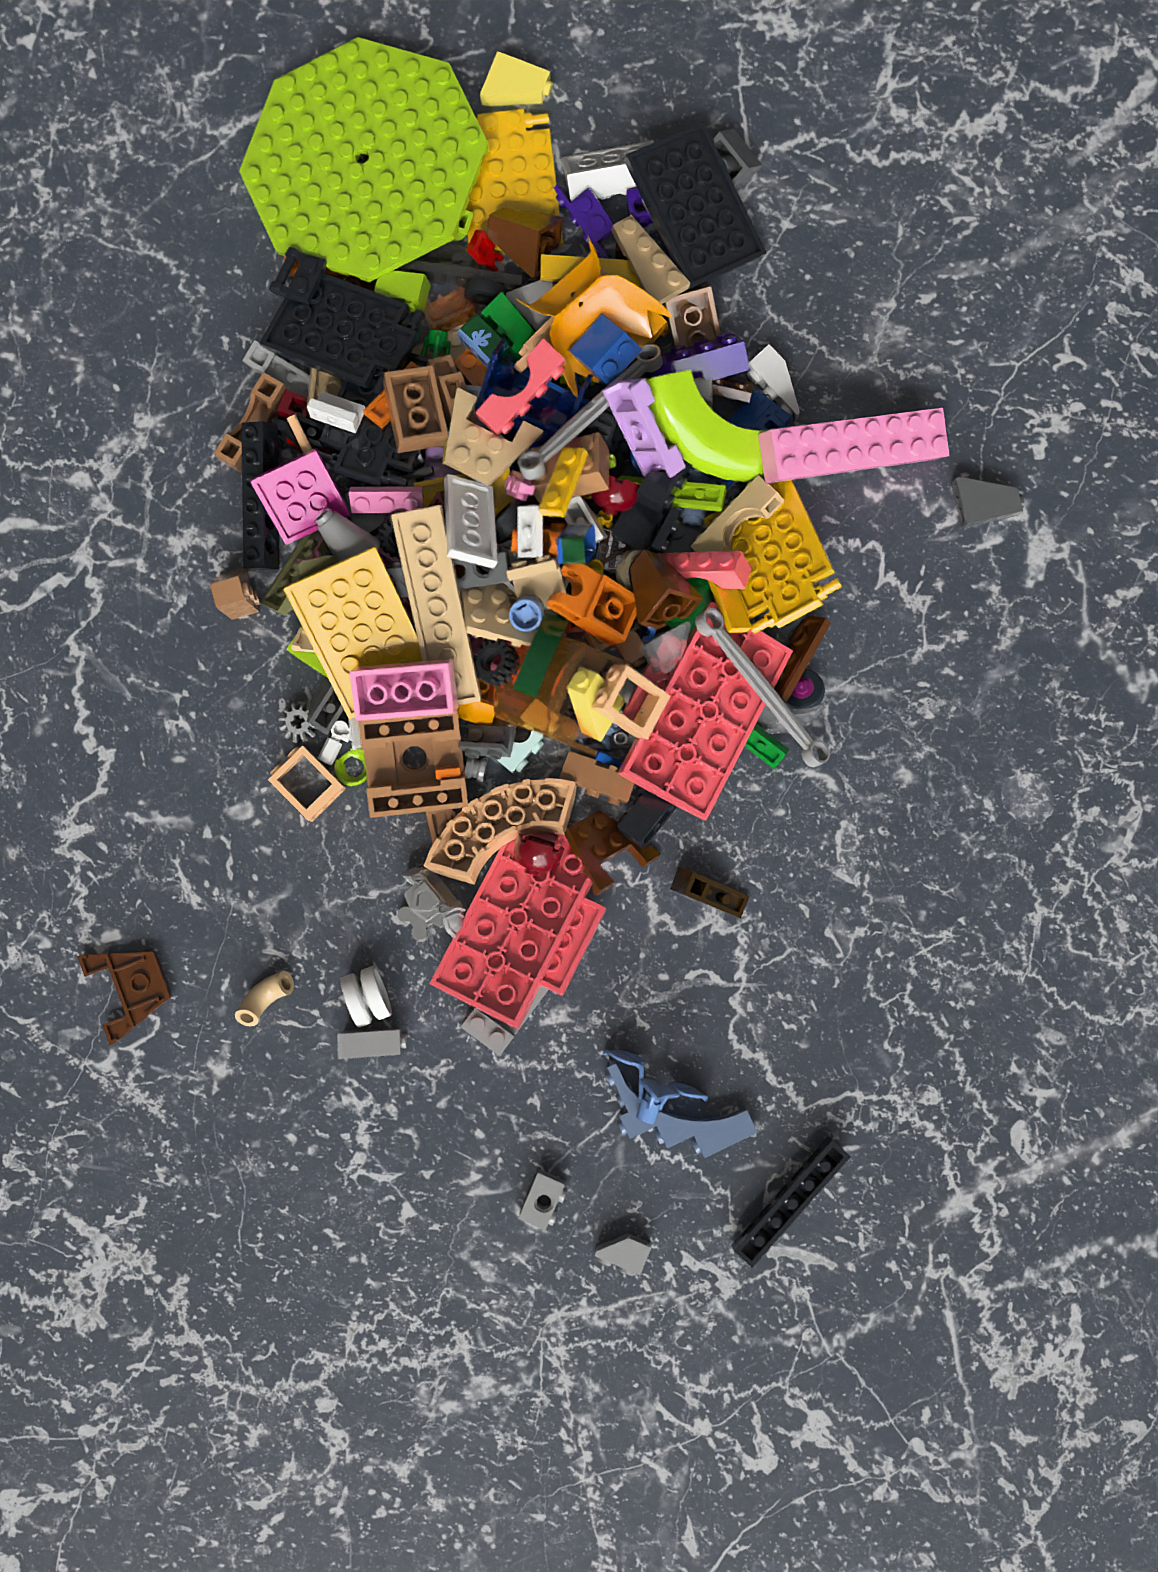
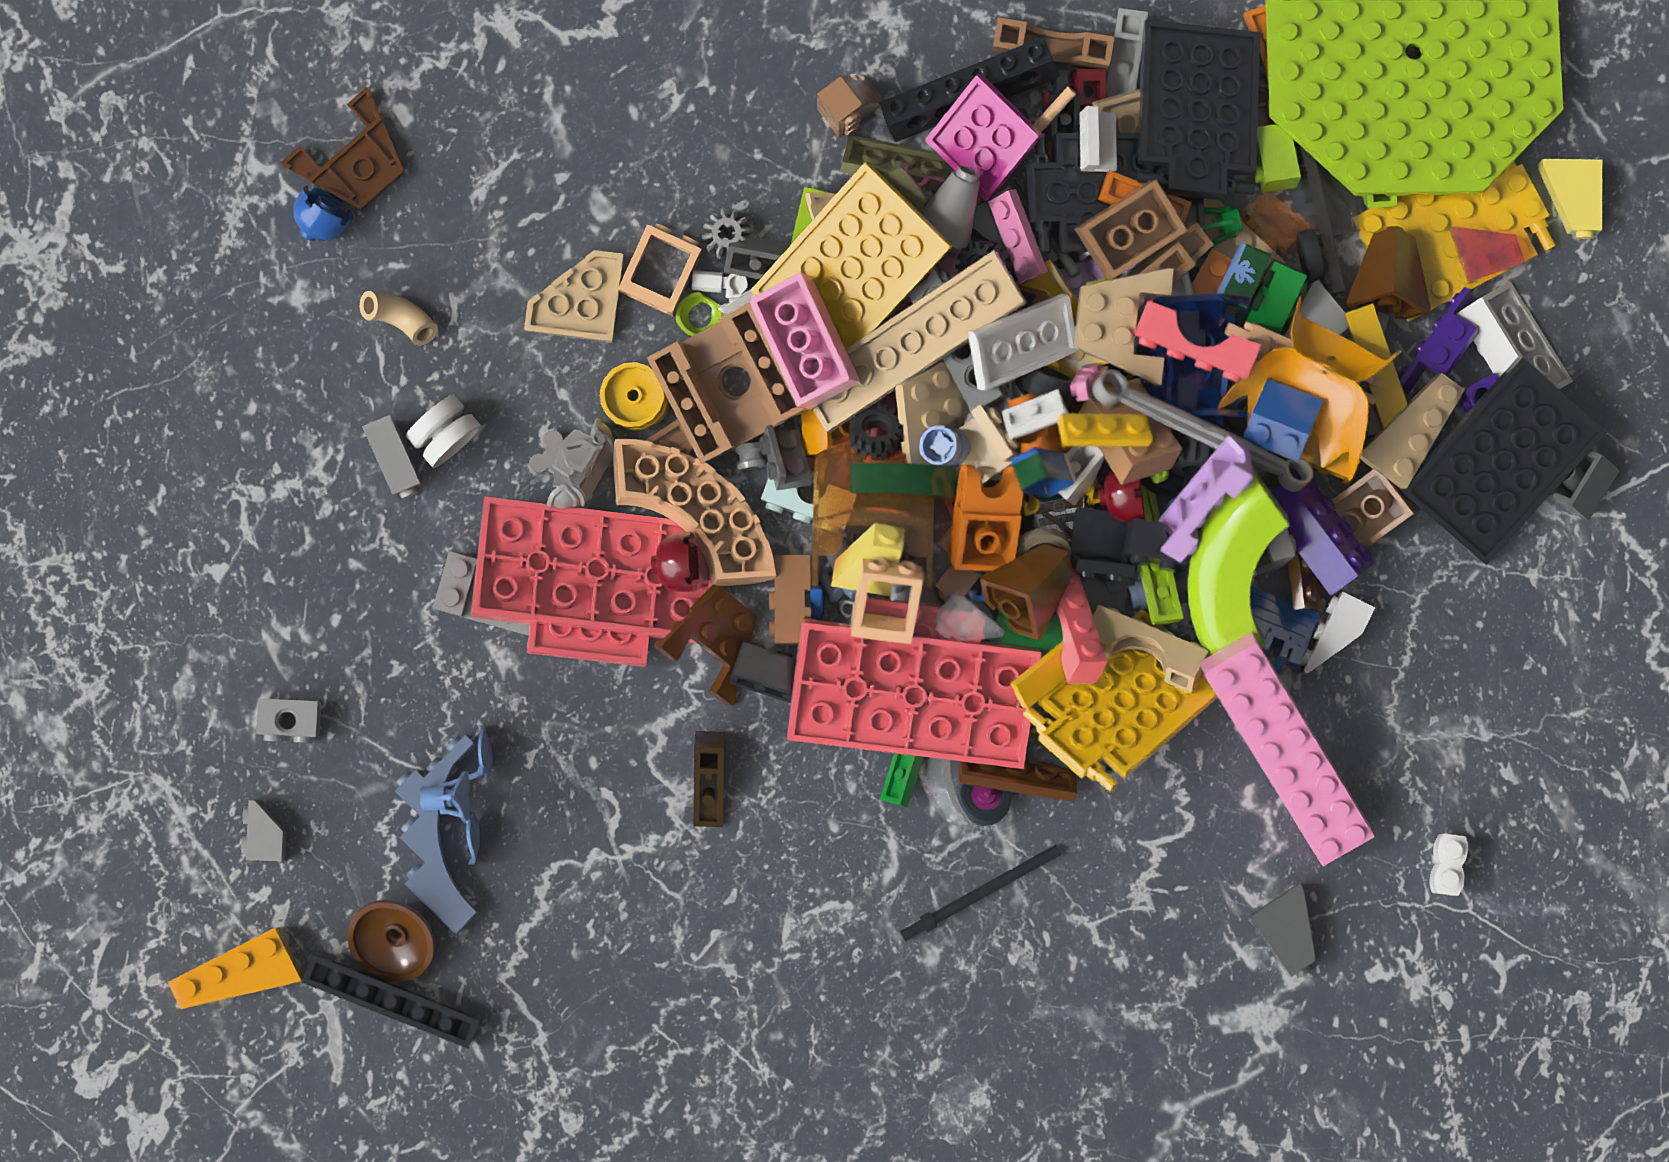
camera: 70 degrees right, 0 degrees up
(162, 1029) = (319, 215): none -> blue cylinder
(304, 280) = (1243, 42): black plate -> none
(306, 853) = (580, 301): none -> tan plate
(382, 842) = (616, 394): none -> yellow wheel
(447, 772) = (732, 426): orange tile -> none
(482, 251) = (1357, 233): red plate -> none
(533, 163) = (1485, 252): none -> clear pink wing
(724, 1309) = (246, 969): none -> light orange wedge
(744, 1184) = (383, 950): none -> reddish brown dish
(762, 687) = (964, 748): light grey piece -> none
(879, 767) = (930, 920): none -> black bar
(983, 366) = (1447, 873): none -> white brick

